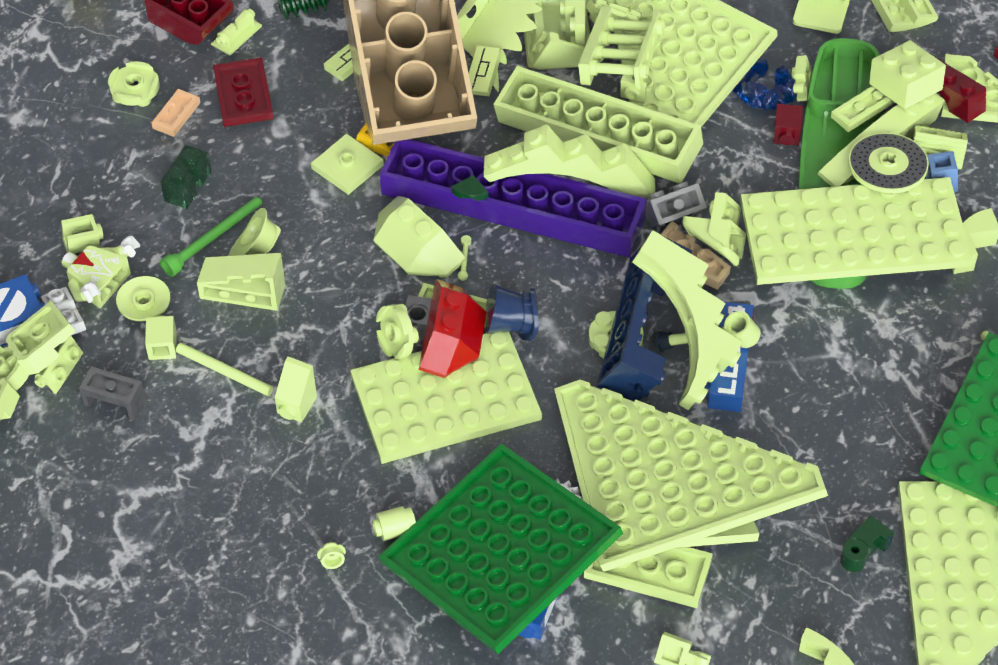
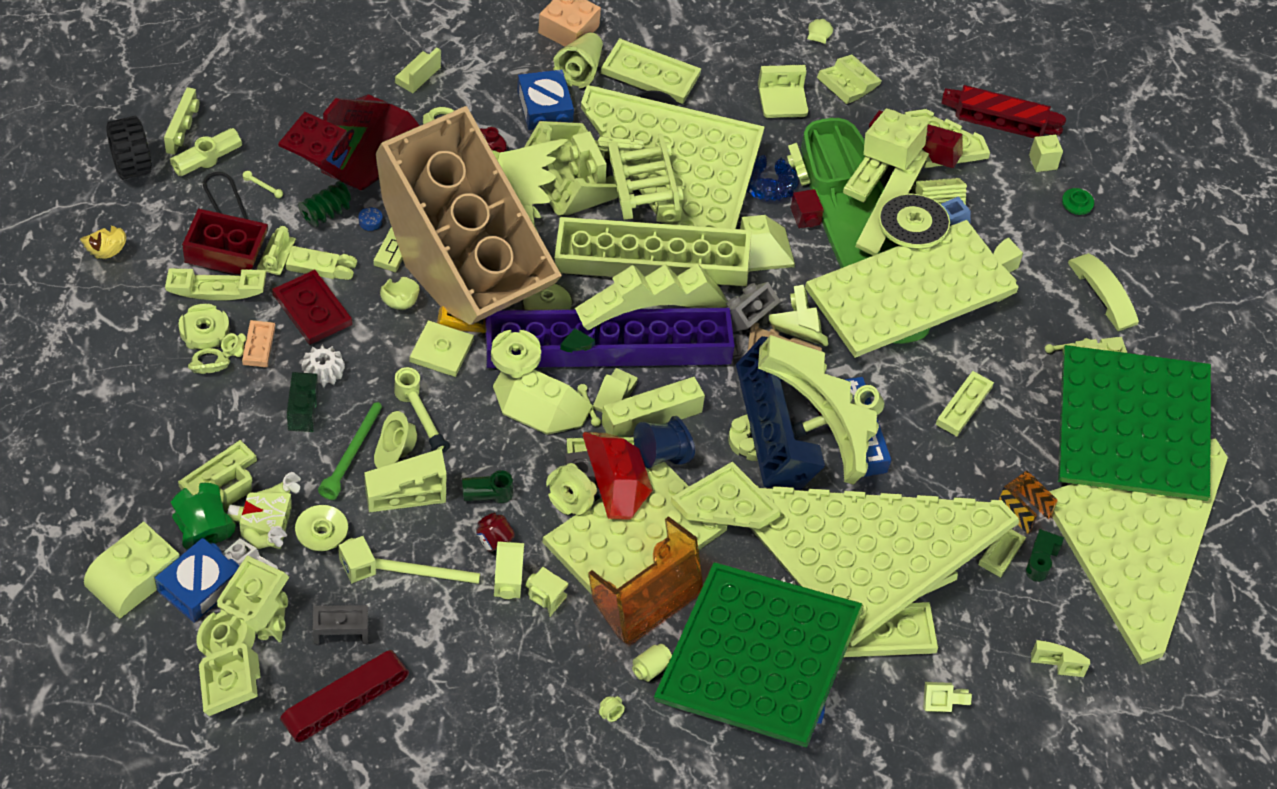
camera: 30 degrees left, 0 degrees up
(37, 254) = (201, 515): none -> green piece
(83, 460) = (344, 696): none -> dark red beam
(103, 212) = (236, 453): none -> yellowish green tile
(133, 121) = (198, 367): none -> yellowish green piece
(151, 107) = (233, 345): none -> yellowish green plate
(162, 50) = (215, 287): none -> yellowish green slope
(224, 148) = (325, 363): none -> white gear
(273, 54) = (326, 264): none -> yellowish green hinge
(294, 194) = (410, 393): none -> yellowish green piece
(304, 348) = (494, 529): none -> dark red head
(326, 422) = (547, 589): none -> yellowish green window
(328, 307) = (488, 487): none -> dark green piece
(330, 102) = (400, 294): none -> yellowish green hair
(338, 25) = (370, 219): none -> blue tile
(403, 195) = (516, 364): none -> yellowish green plate
(426, 457) = (654, 592): none -> clear orange windscreen
(475, 142) = (551, 298): none -> yellowish green dish
(495, 251) = (615, 388): none -> yellowish green slope
(547, 386) = (726, 499): none -> yellowish green plate
(548, 275) = (655, 406): none -> yellowish green brick
(726, 148) = (768, 244): none -> yellowish green slope
(824, 527) = (1002, 552): none -> yellowish green tile
(859, 365) = (964, 403): none -> yellowish green plate
(881, 467) = (1034, 493): none -> clear orange piece

